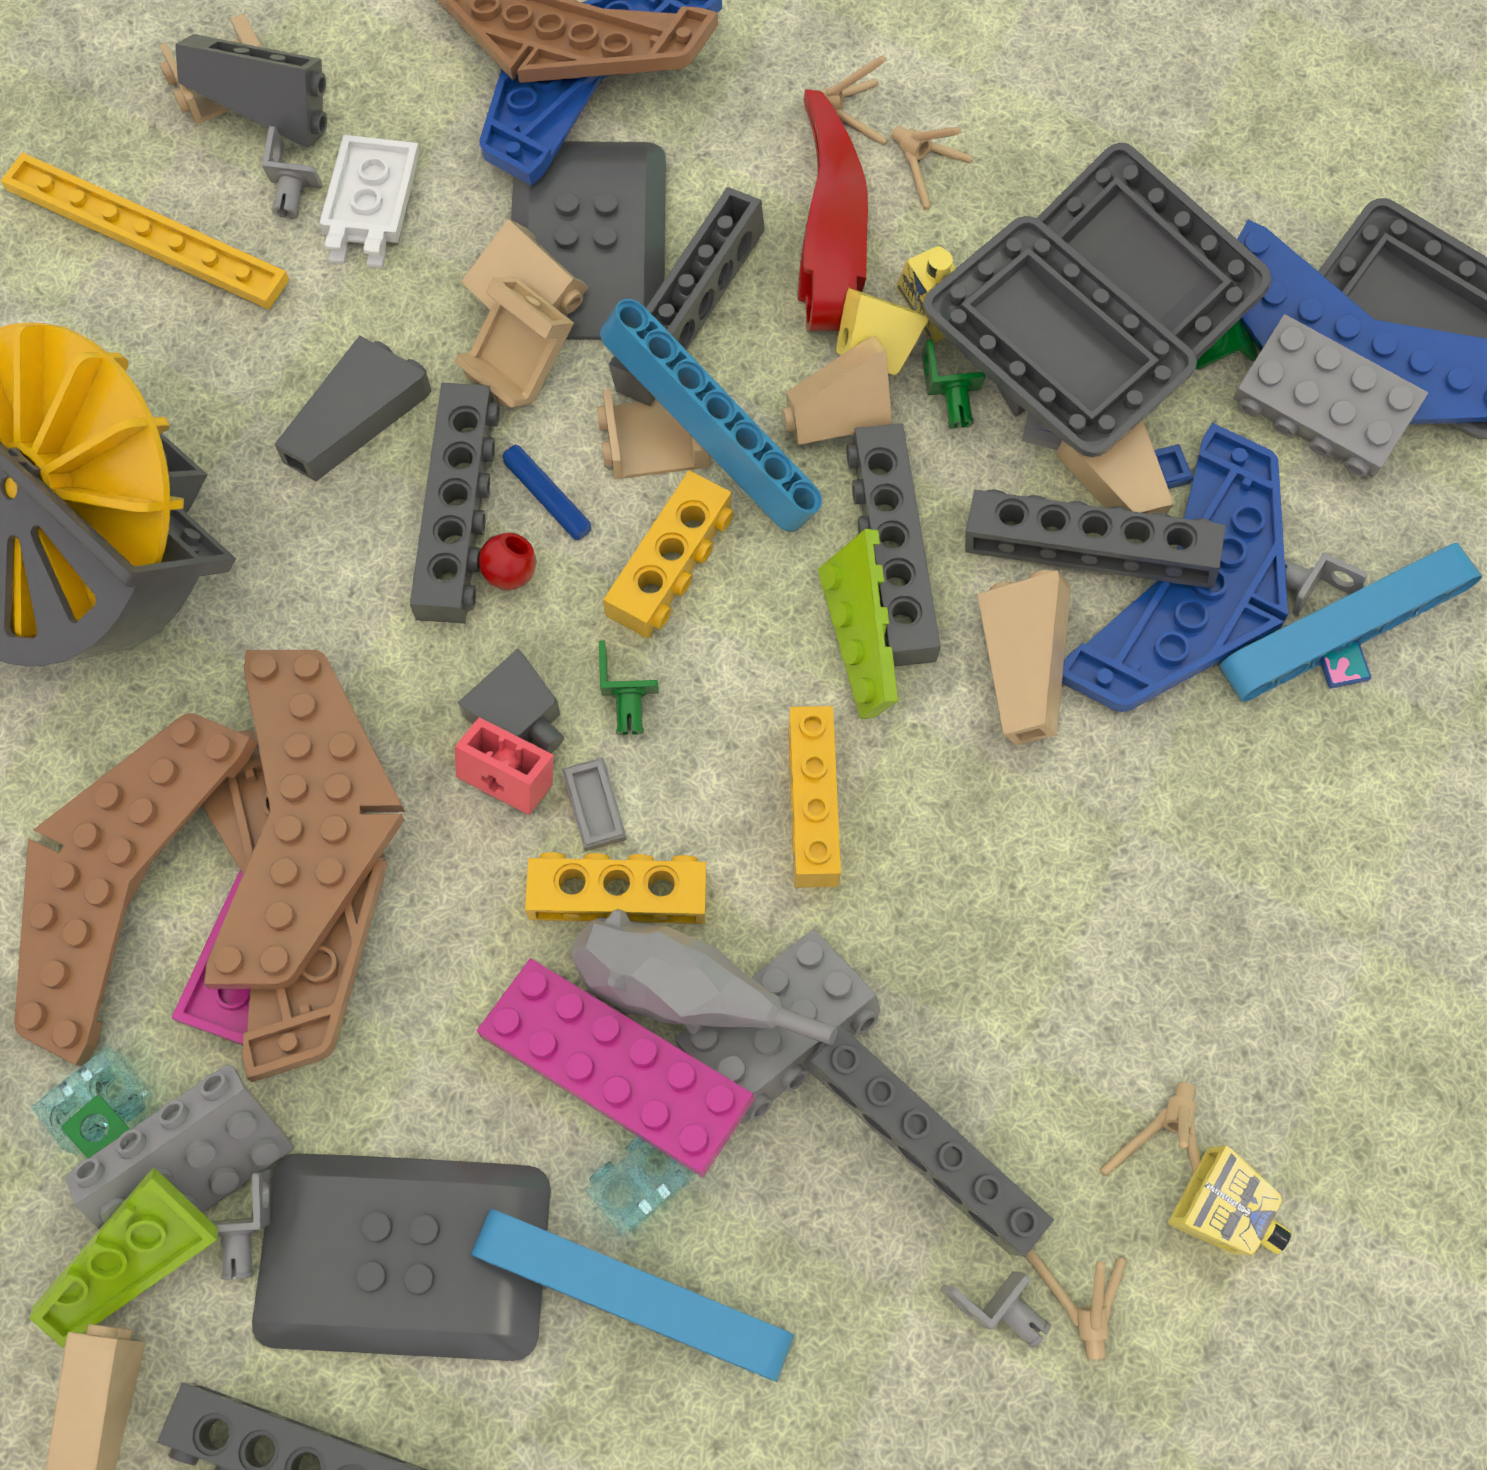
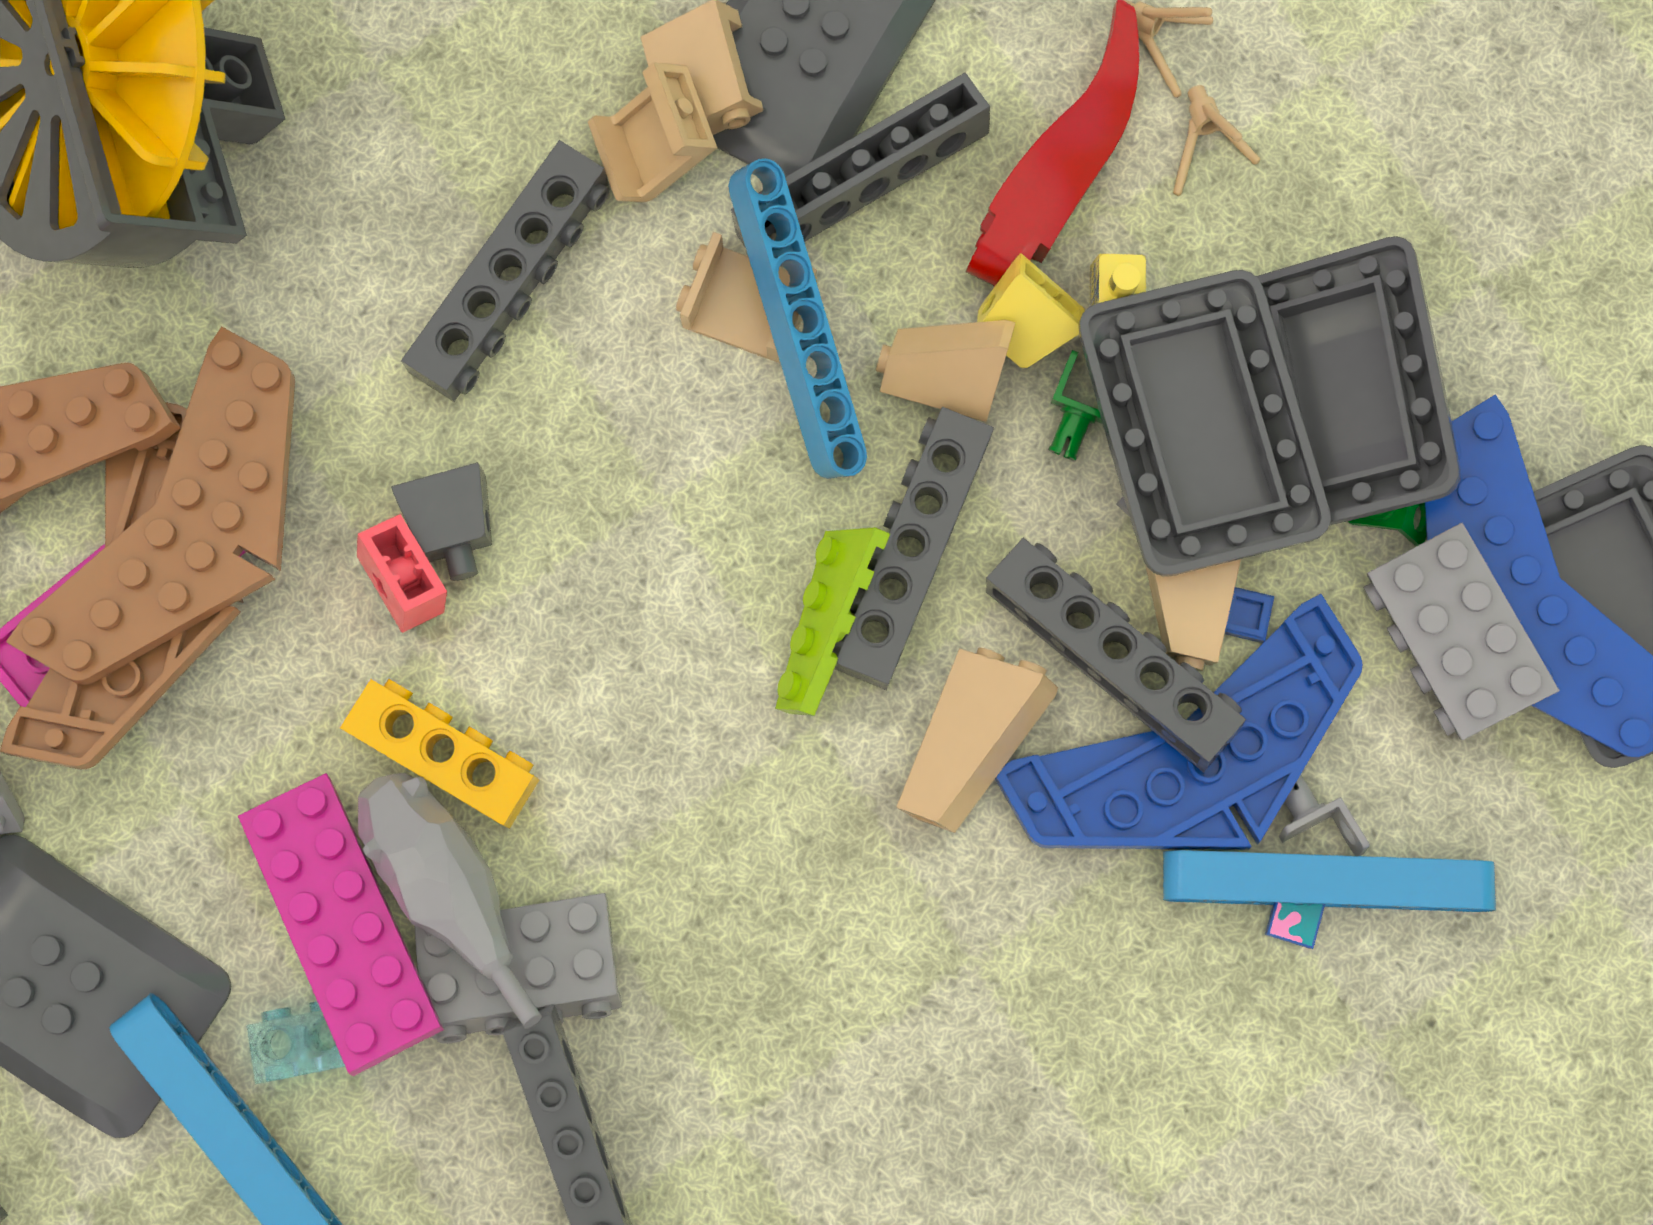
camera: 30 degrees right, 10 degrees up
(351, 407) = (464, 117): dark grey slope -> none
(507, 561) = (522, 363): red piece -> none
(546, 492) = (605, 307): blue axle -> none
(594, 804) = (471, 653): light grey tile -> none
(627, 695) = (561, 563): green bracket -> none
(692, 500) = (735, 393): yellow brick -> none
(814, 797) = (677, 764): yellow brick -> none

